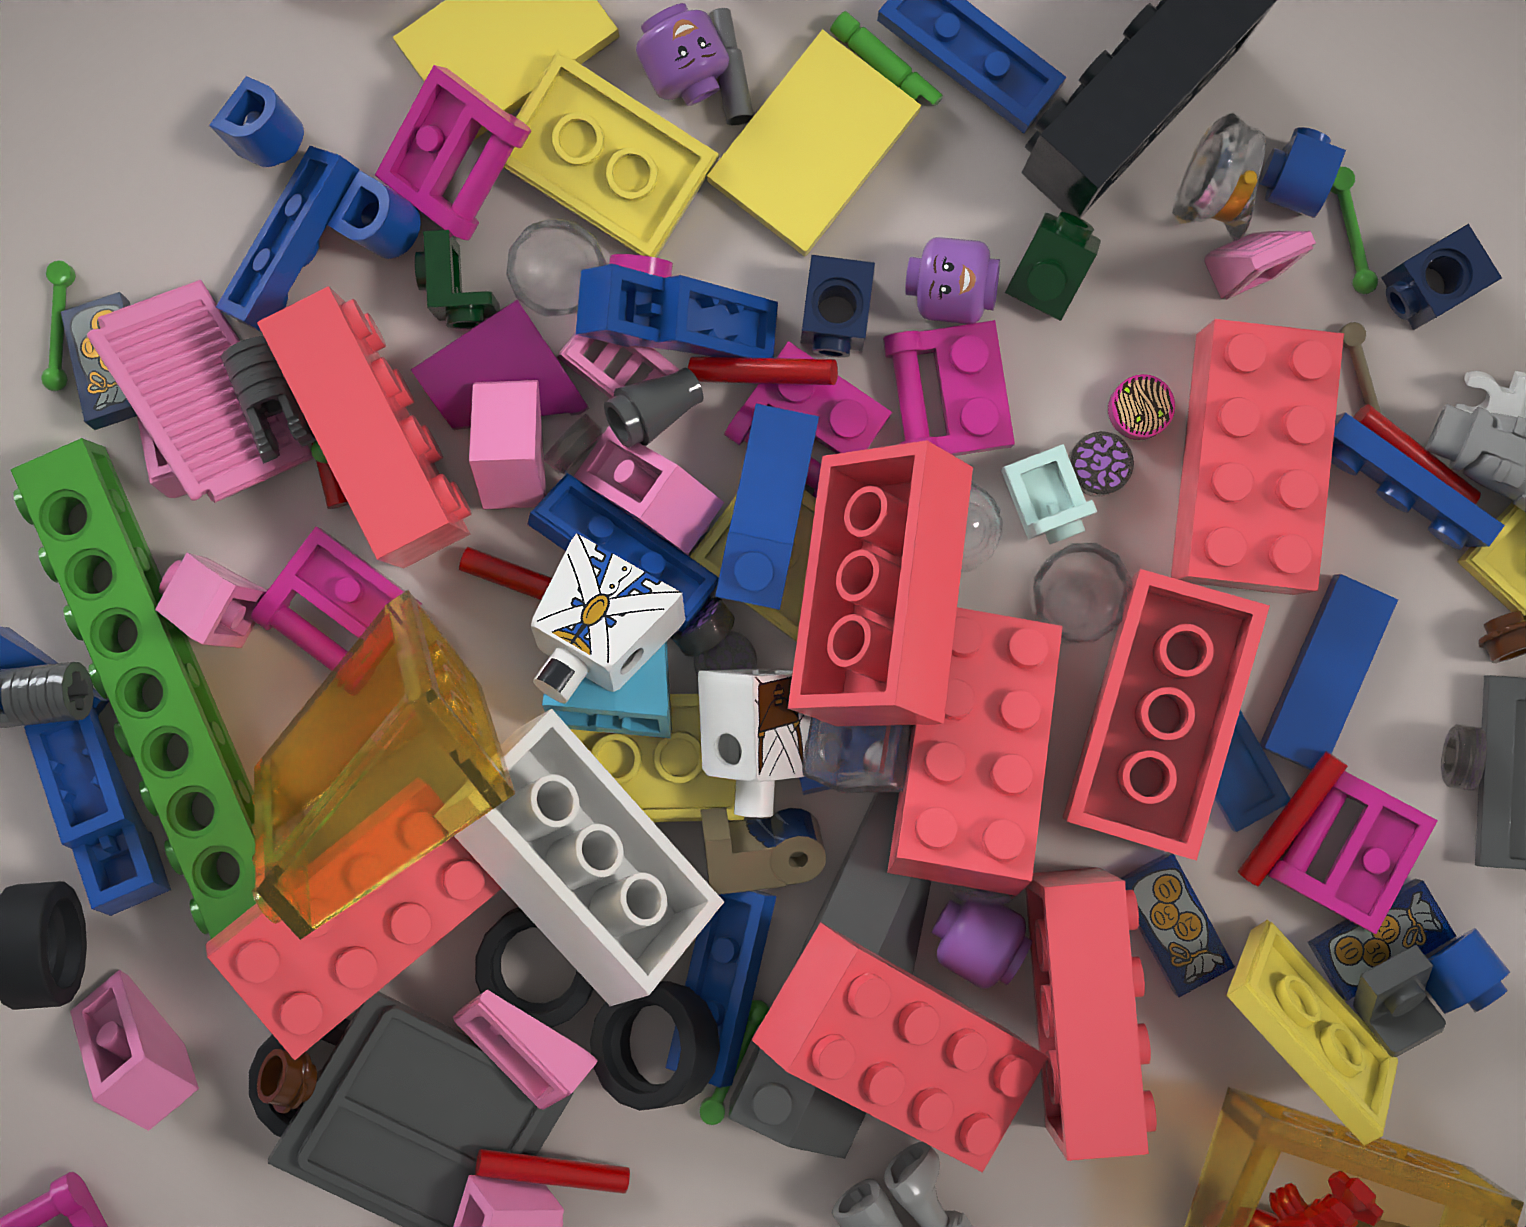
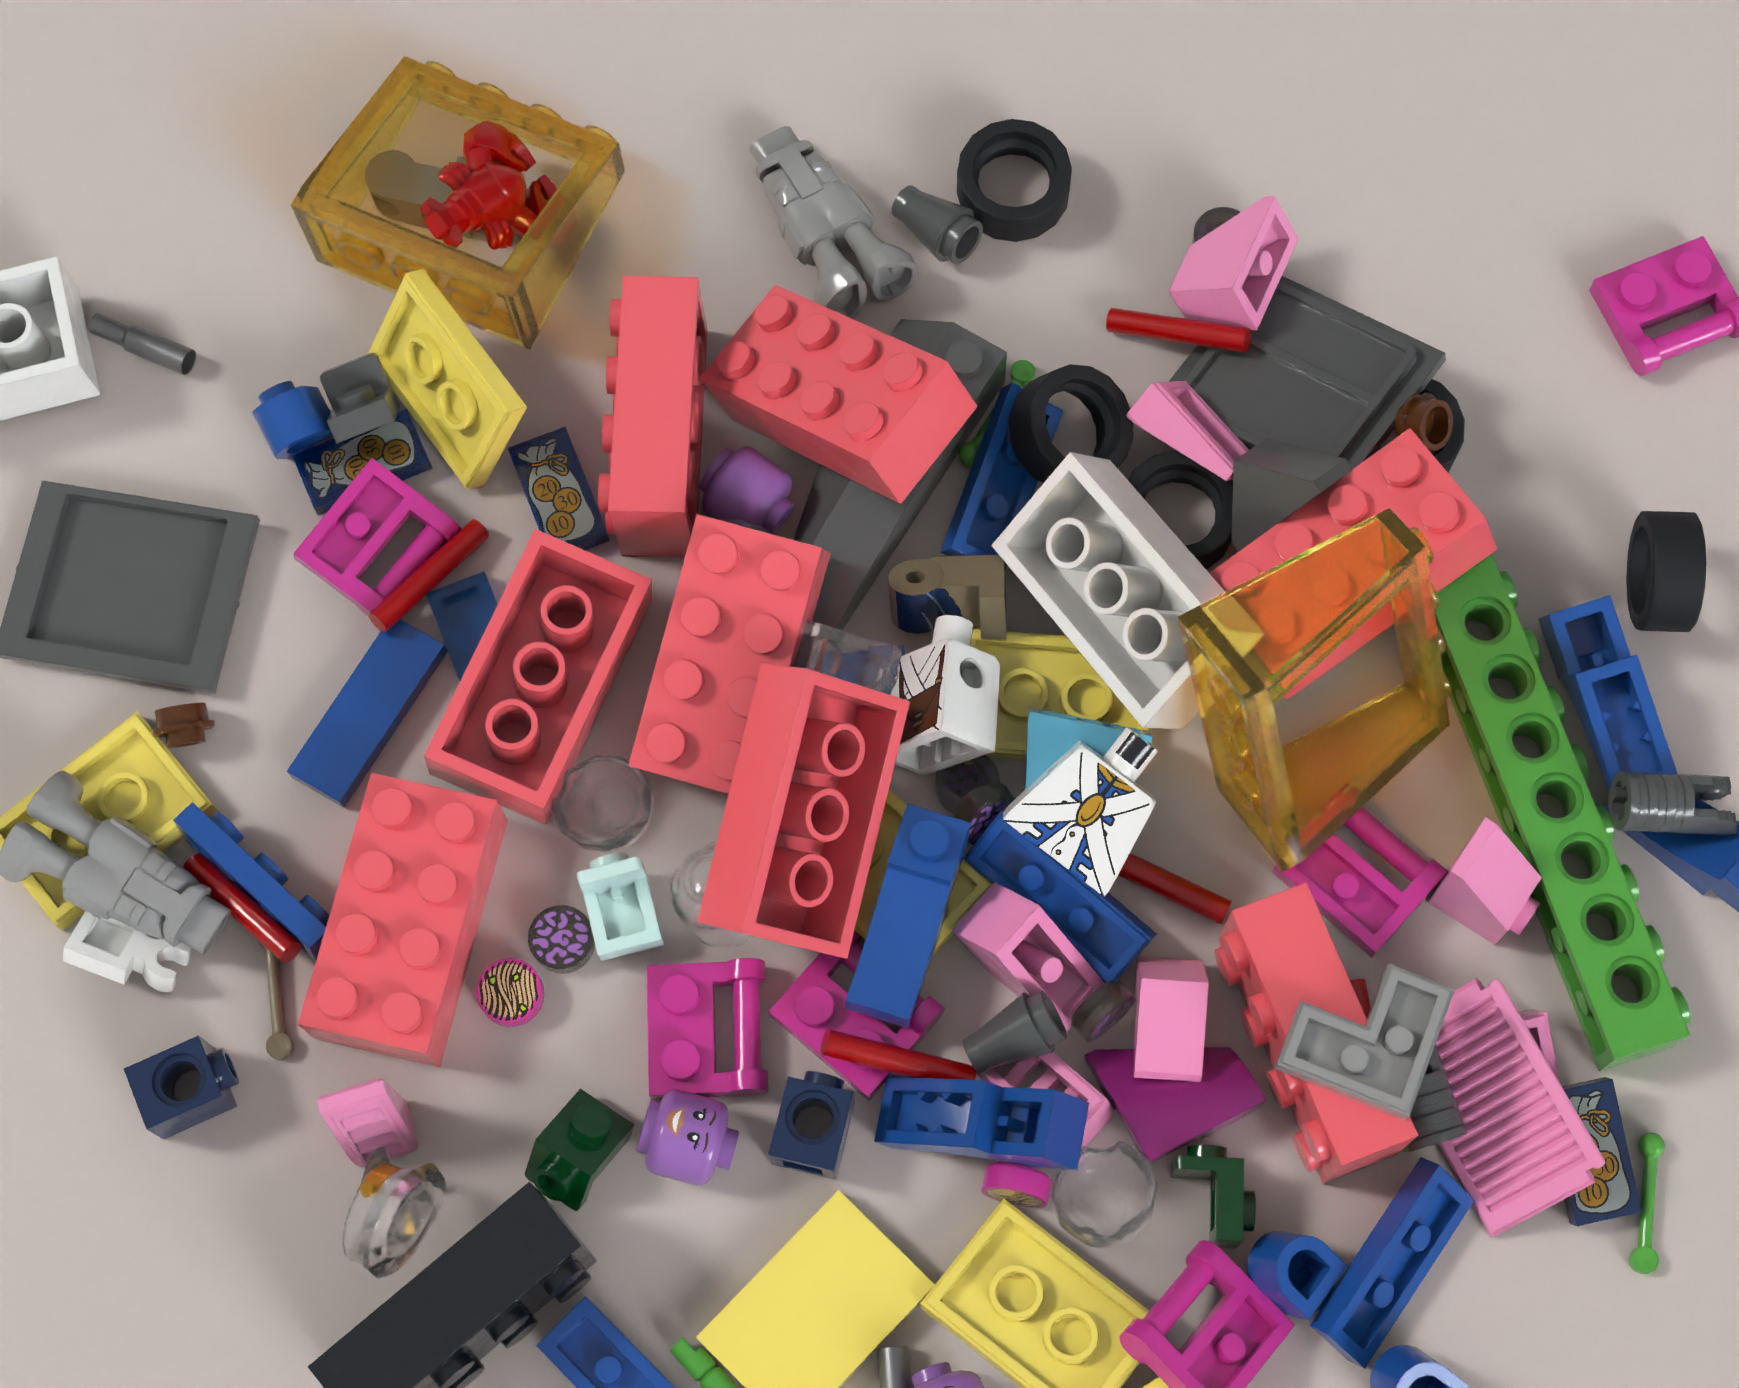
camera: 170 degrees left, 15 degrees down
(131, 1053) = (1579, 472): bright pink slope -> none
(292, 386) = (1376, 1061): none -> light grey tile
(429, 992) = (1274, 483): none -> dark grey slope
(1302, 172) = (304, 1214): blue plate -> none
(1364, 280) = (260, 1210): bright green hinge -> none
(1464, 757) = (253, 615): clear smoke tile -> none

